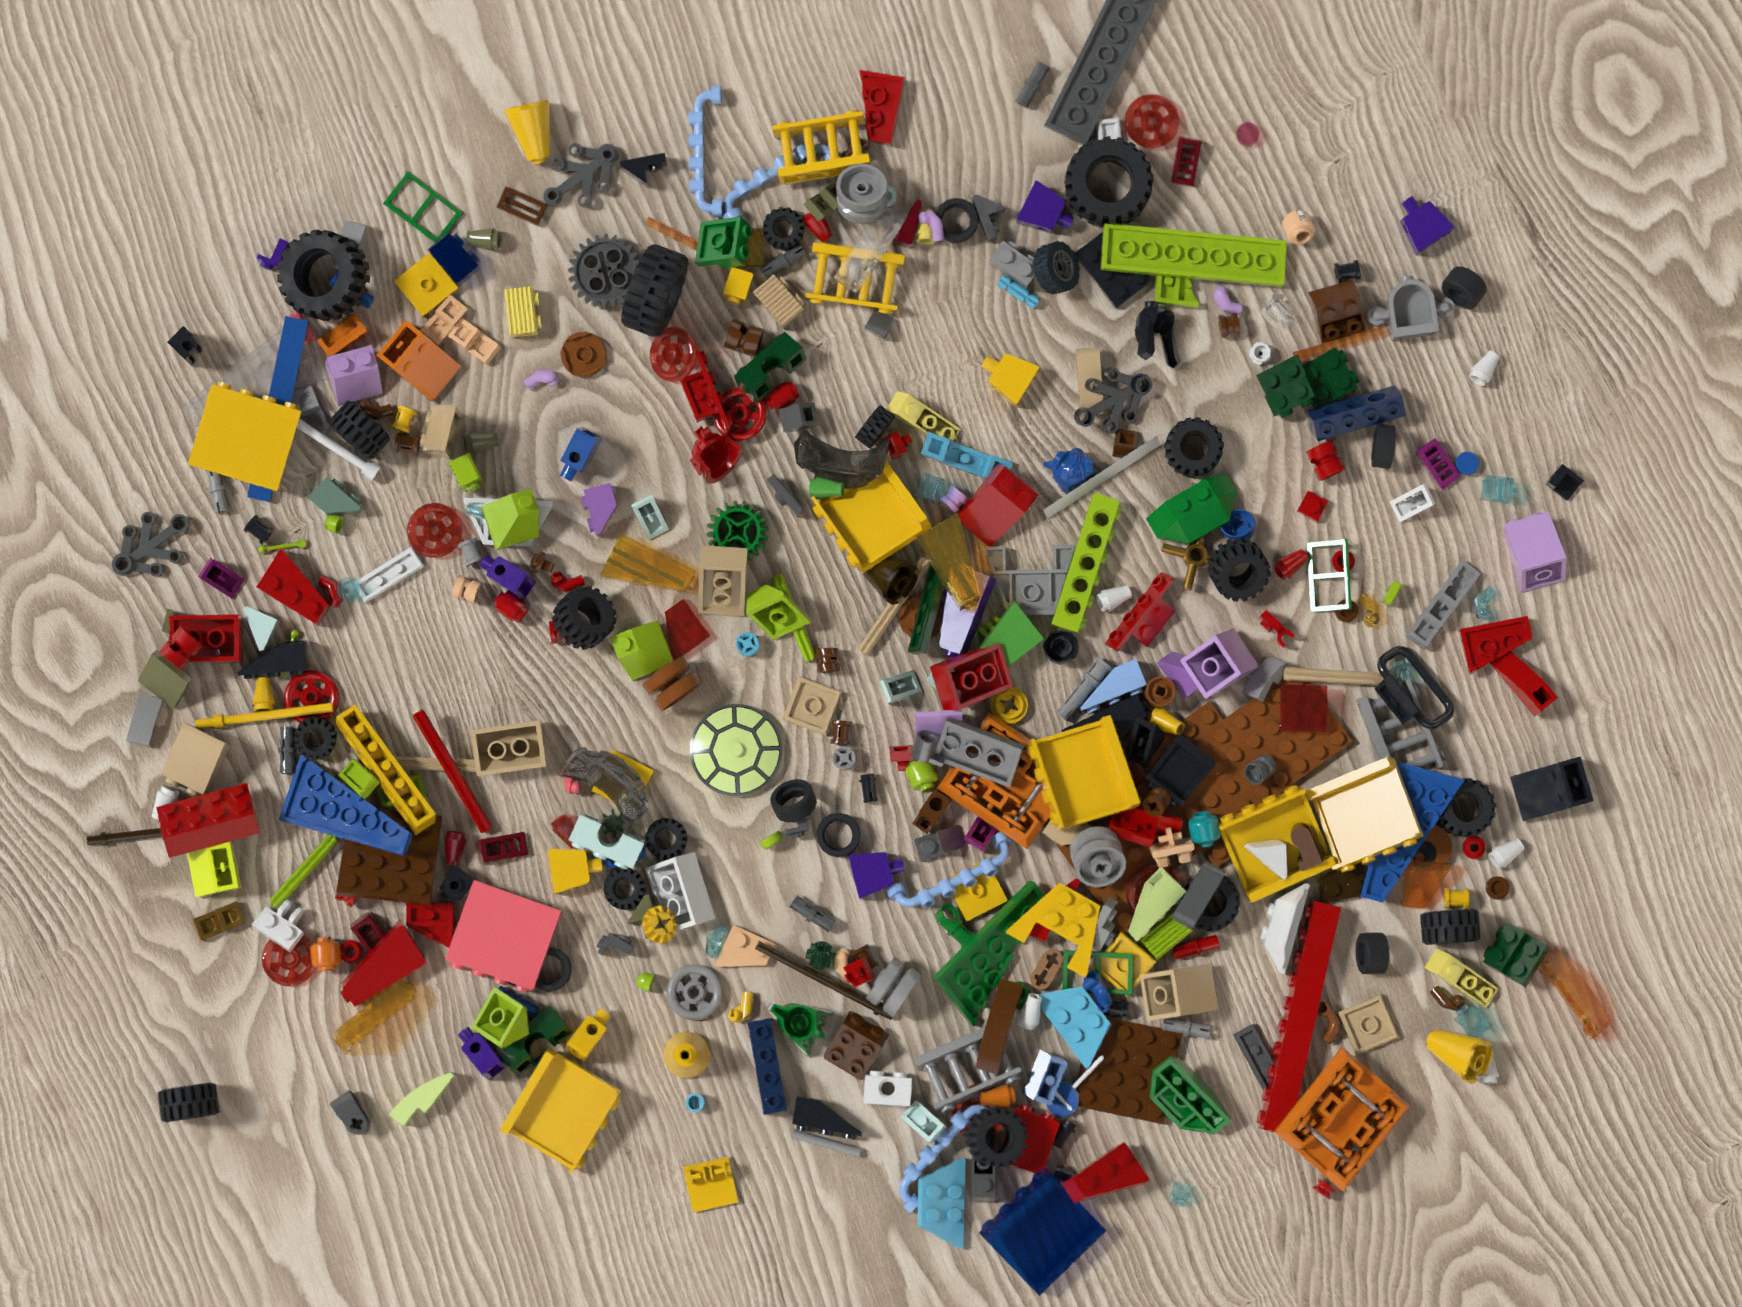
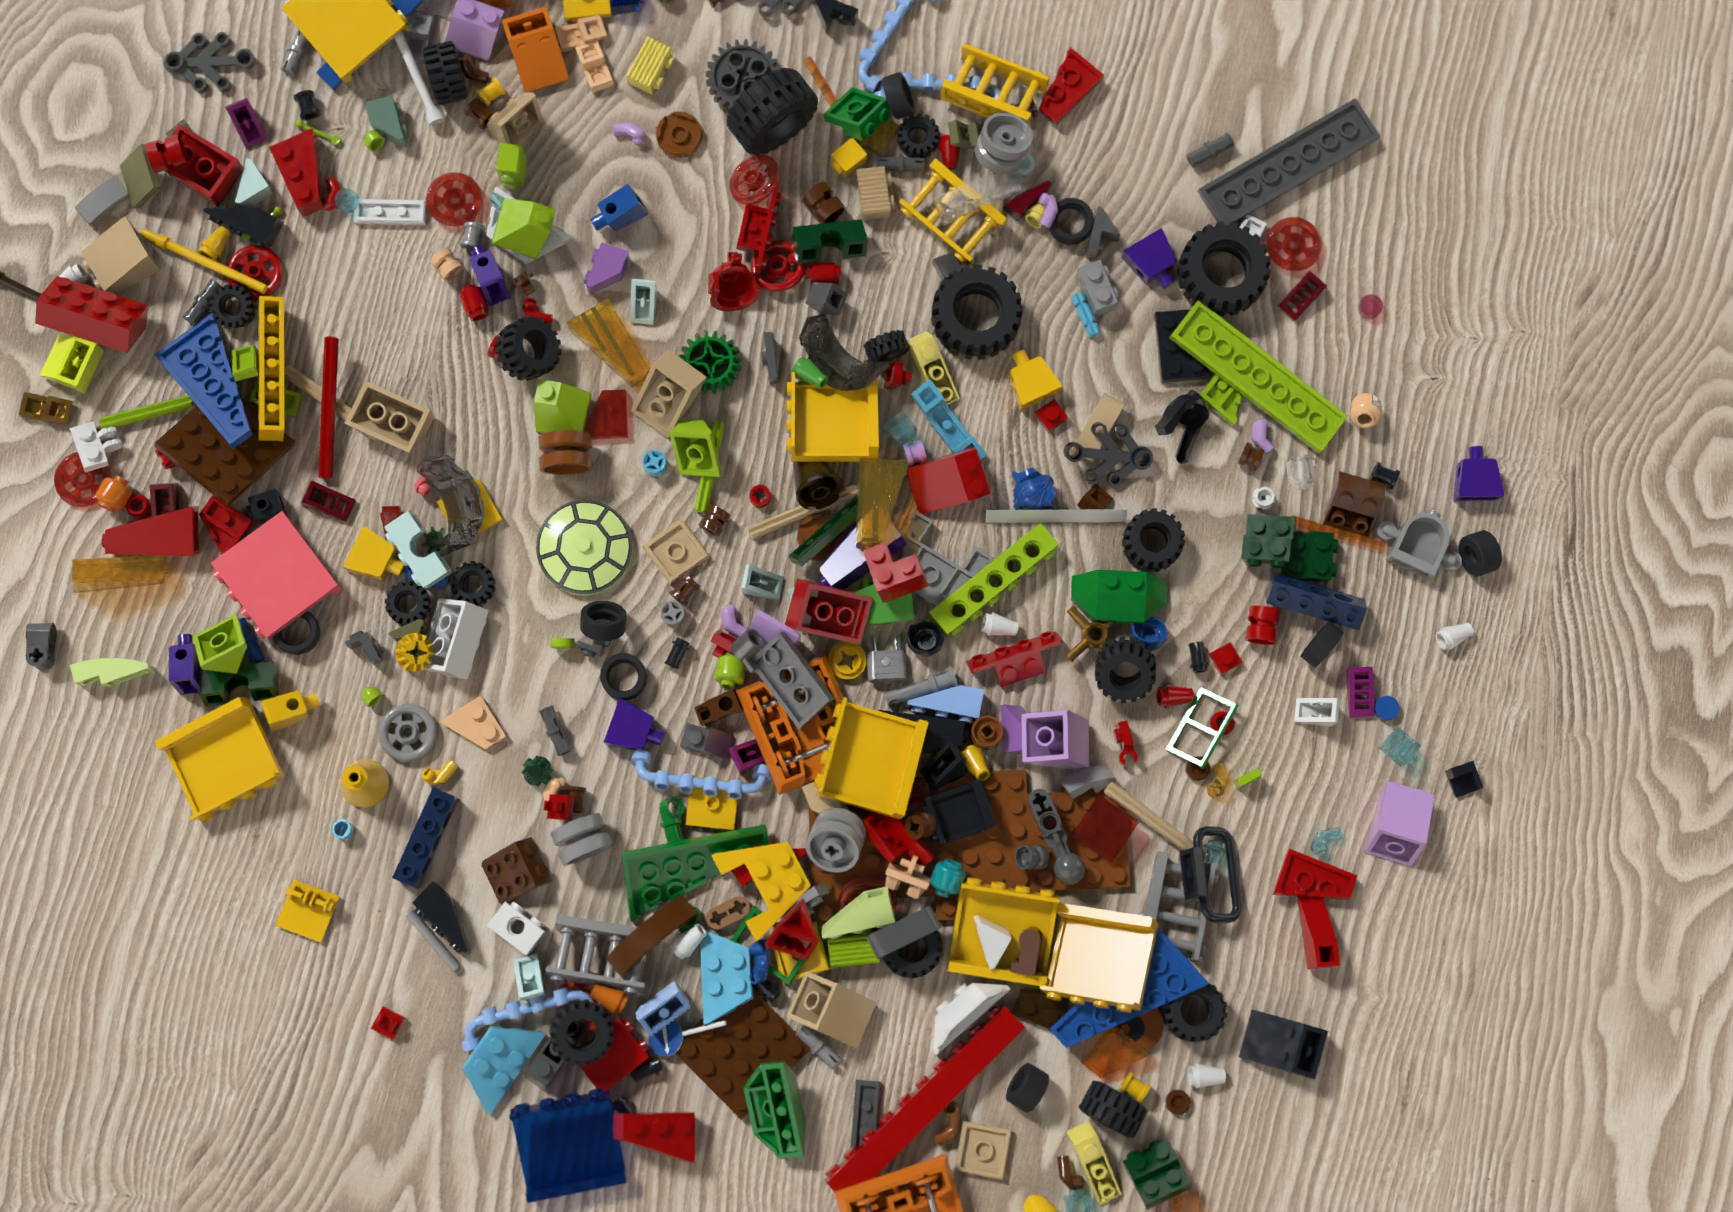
camera: 30 degrees right, 5 degrees down
(454, 847) = (287, 473): dark red cone -> none
(479, 441) = (542, 150): olive cone -> none
(713, 941) = (454, 699): clear light blue arm -> none
(747, 207) = (898, 95): none -> black tyre
(800, 1023) = (479, 819): green piece -> none
(821, 978) = (523, 790): dark brown bar -> none
(834, 1230) = (388, 1023): none -> red tile
(853, 609) = (753, 499): none -> red bush
(894, 735) = (729, 621): none -> lavender arm
(929, 318) = (983, 283): none -> black tyre
(1005, 618) = (894, 577): none -> brick
(1042, 689) = (886, 665): none -> light grey piece
(1044, 395) = (1051, 415): none -> red plate
(1056, 267) = (1131, 311): black wheel -> none
(1113, 951) = (794, 933): none -> red slope
(1180, 1198) = (712, 1196): clear light blue plate -> none
(1196, 947) = (873, 979): red axle -> none
(1291, 521) = (1198, 658): none -> black pin
(1294, 758) = (1068, 867): none -> dark grey beam
(1443, 604) = (1287, 817): light grey slope -> none
(1466, 847) = (1171, 1051): red plate -> none

